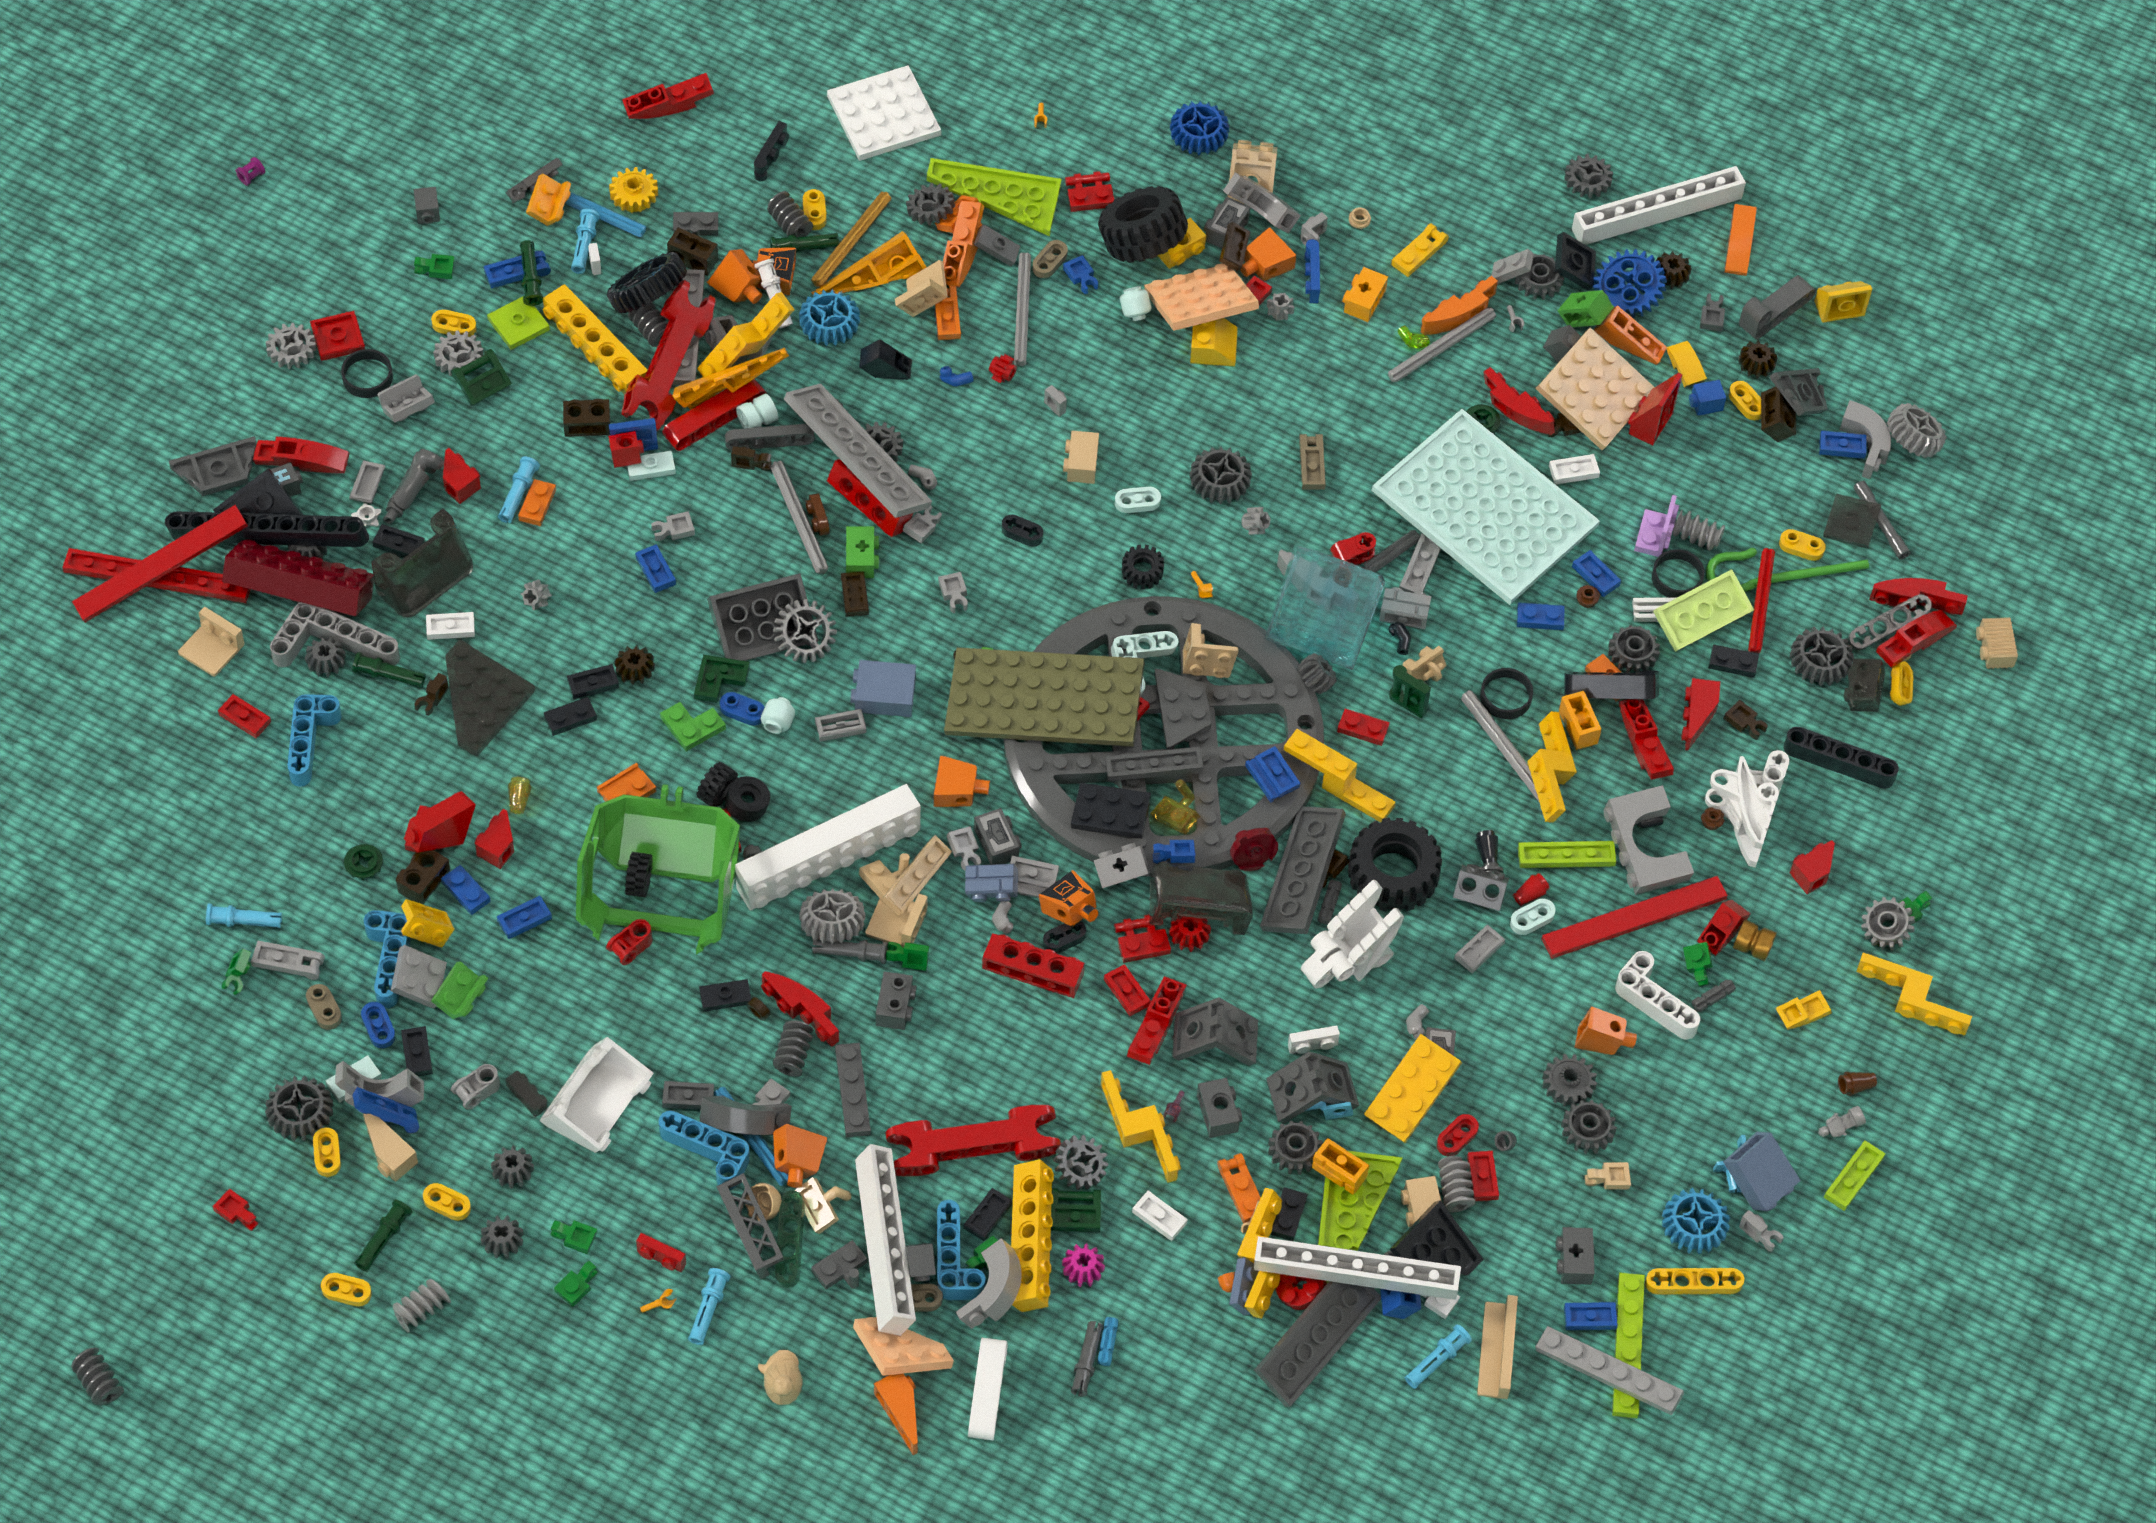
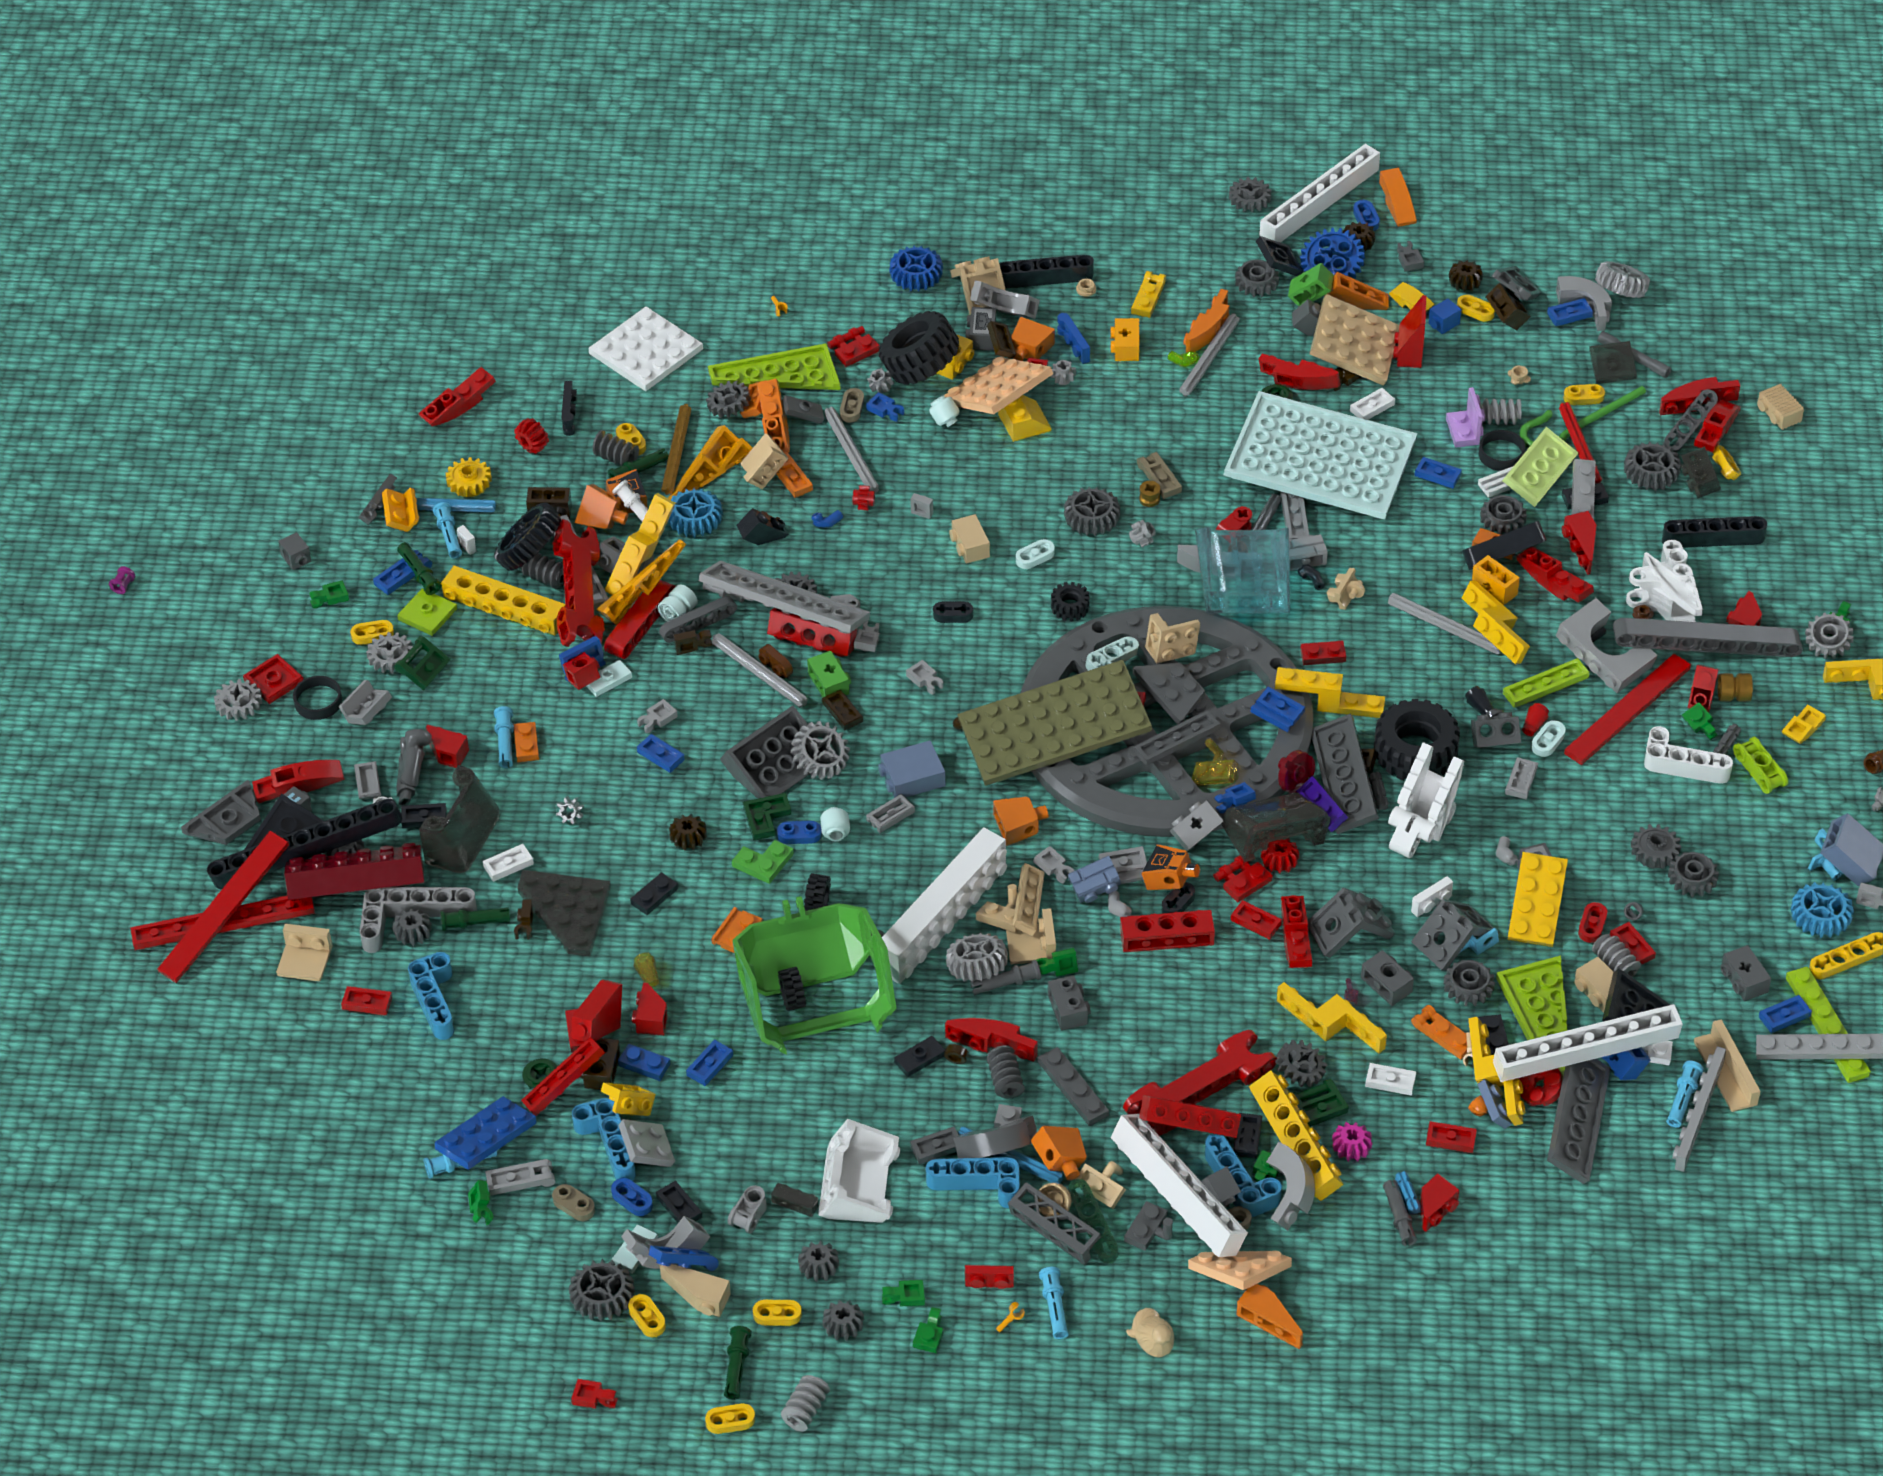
camera: 20 degrees left, 10 degrees down
(277, 901) = (485, 1132): none -> blue plate
(376, 875) = (563, 1076): none -> red plate
(459, 991) = (689, 1141): bright green bracket -> none
(587, 421) = (532, 661): dark brown brick -> none
(592, 681) = (658, 859): black plate -> none
(627, 944) = (813, 1047): red piece -> none
(696, 222) = (541, 479): dark grey plate -> none
(715, 169) = (531, 435): none -> red gear
(747, 811) = (848, 887): black tyre -> none
(936, 1173) = (1189, 1116): none -> red brick
(987, 1388) = (1327, 1245): white beam -> none
(997, 837) = (1076, 845): brick -> none
(1091, 243) = (880, 381): none -> light grey gear
(1111, 810) = (1162, 786): black plate -> none
(1128, 1362) = (1437, 1200): none -> red slope
(1182, 1302) = (1451, 1137): none -> red plate
(1204, 590) = (1130, 601): light orange hand -> none
(1262, 893) = (1317, 794): none -> dark purple plate
(1287, 484) = (1149, 493): none -> pearl gold wheel
(1313, 228) = (1054, 307): light grey bracket -> none
(1317, 673) = (1264, 624): dark grey gear -> none
(1327, 183) = (1047, 271): none -> black beam
(1340, 1166) = (1519, 977): light orange brick -> none
(1416, 692) = (1355, 609): dark green plate -> none
(1449, 1372) = (1695, 1116): none -> light grey plate
(1507, 673) = (1427, 570): black tyre -> none
(1512, 266) = (1233, 275): light grey plate -> none
(1514, 319) = (1258, 317): light grey hand -> none
(1540, 616) = (1412, 520): blue plate -> none
(1587, 601) = (1441, 492): reddish brown plate -> none
(1603, 1032) = (1660, 799): orange torso -> none
(1613, 1175) = (1734, 902): tan plate -> none
(1696, 250) = (1366, 213): none -> blue plate
(1731, 654) = (1583, 486): none -> light grey plate
(1731, 1051) = (1760, 765): none -> lime piece
(1743, 718) = (1621, 532): dark brown plate -> none
(1749, 491) = (1519, 375): none -> tan plate
(1756, 875) = (1707, 637): none -> dark grey beam
(1761, 317) = (1452, 239): dark grey beam -> none
(1842, 301) = (1505, 211): yellow slope -> none

